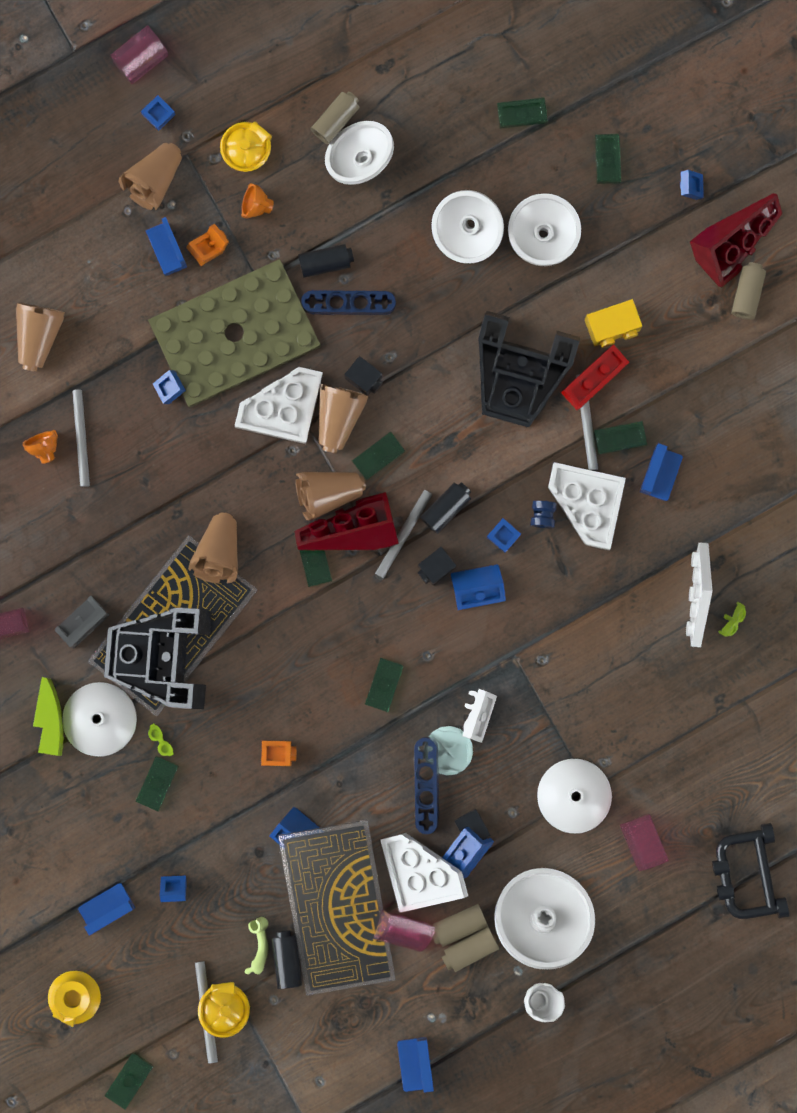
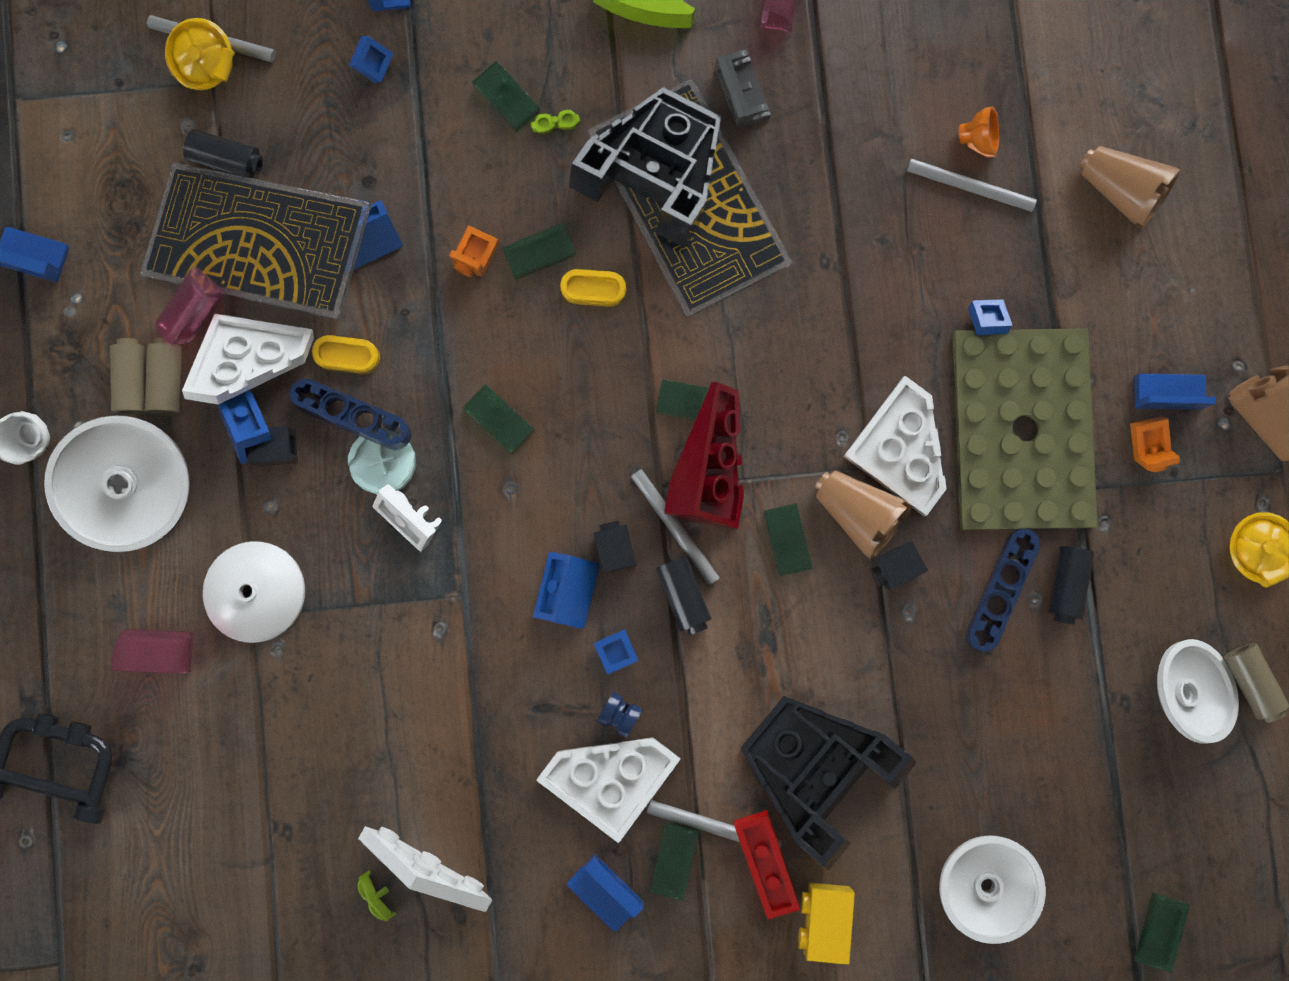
camera: 115 degrees right, 0 degrees up
(116, 723) = (618, 81): white dish -> none
(217, 551) = (757, 285): medium nougat cone -> none
(255, 202) = (1184, 529): orange piece -> none
(257, 709) = (539, 251): none -> clear green plate
(259, 926) = (278, 139): yellowish green piece -> none
(265, 662) = (593, 287): none -> yellow tile
(327, 491) = (770, 455): medium nougat cone -> none
(386, 809) = (345, 354): none -> yellow tile
(454, 234) = (1035, 767): white dish -> none

